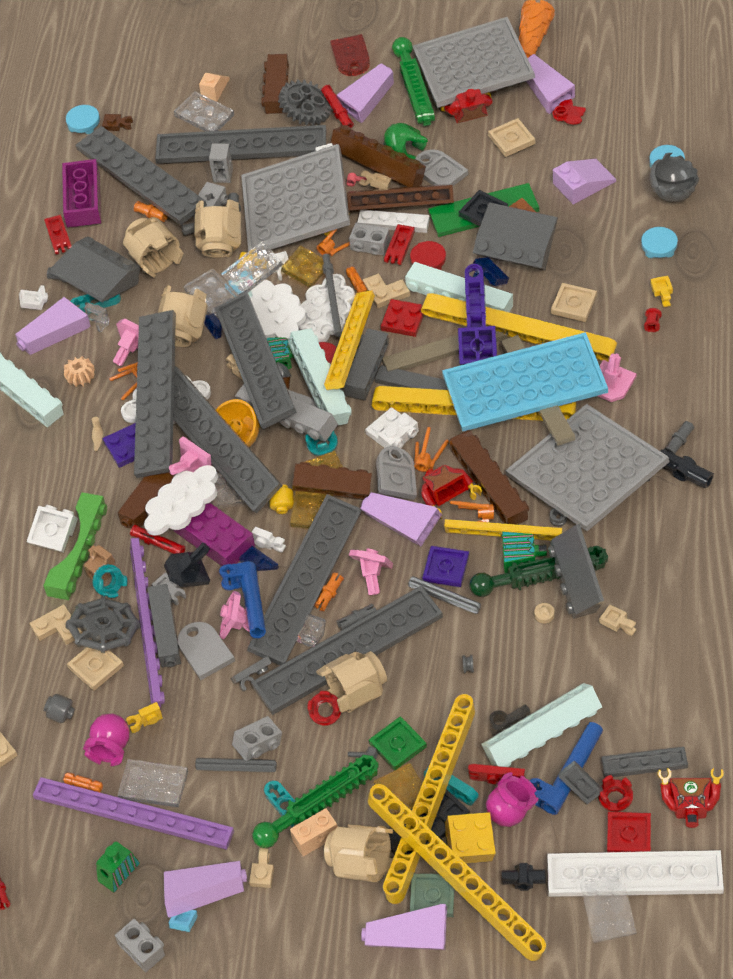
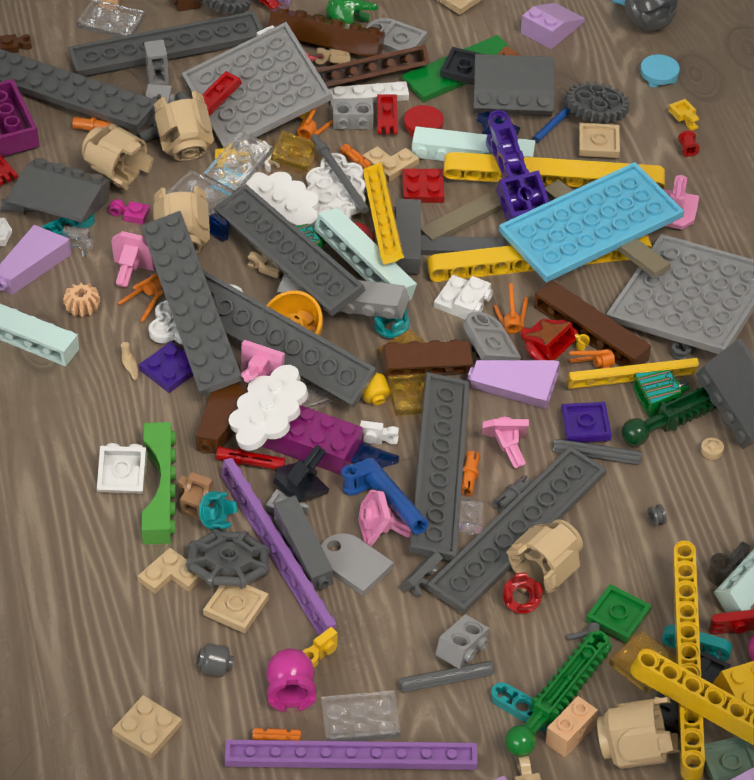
camera: 25 degrees left, 5 degrees down
(150, 299) = (133, 213): none -> dark pink plate
(259, 201) = (220, 91): none -> red hinge
(548, 274) = (551, 124): none -> blue bar
(587, 265) = (597, 102): none -> dark grey gear

